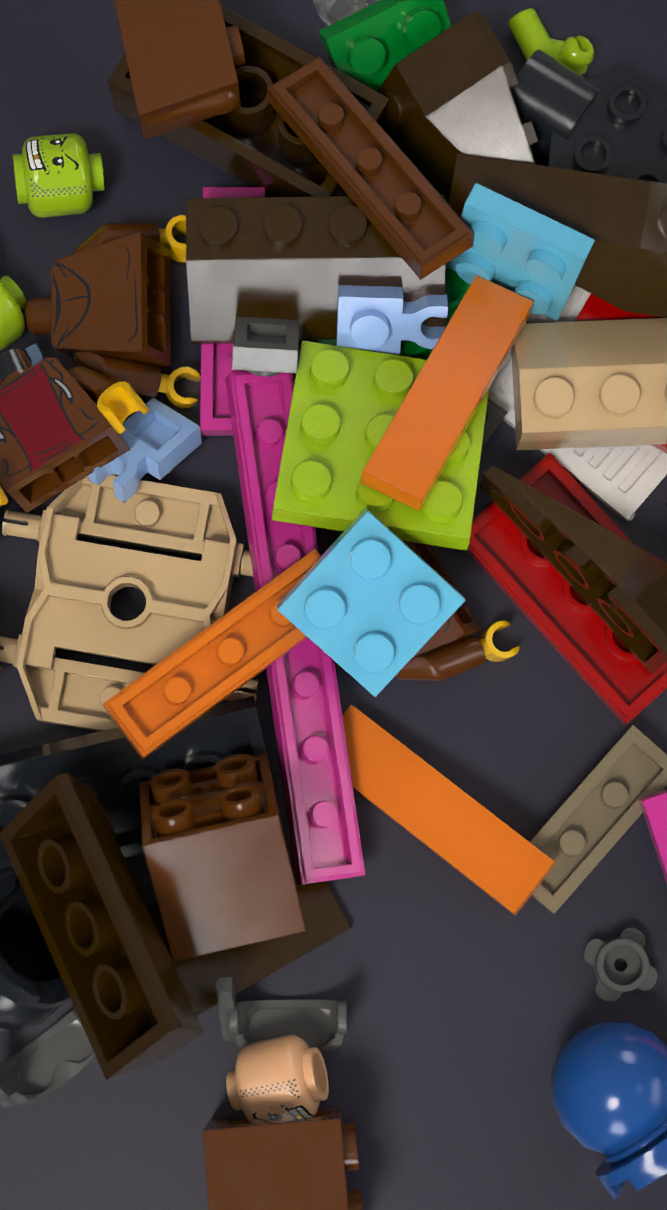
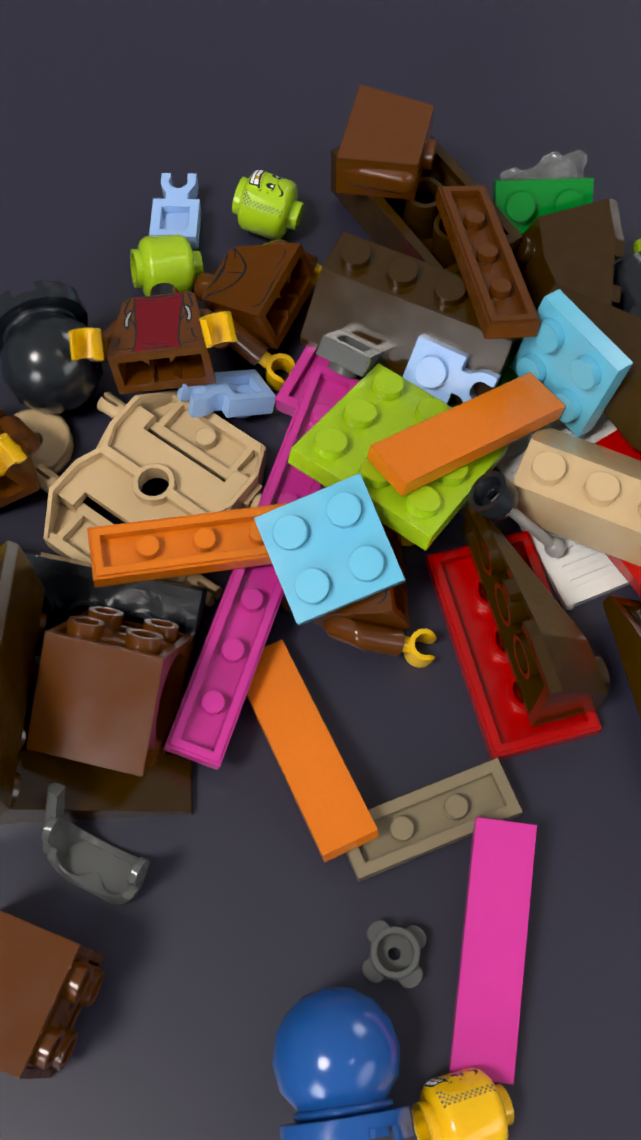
camera: 25 degrees right, 15 degrees down
(278, 1080) = (62, 899): light nougat head -> none
(526, 456) = (505, 505): none -> black hinge

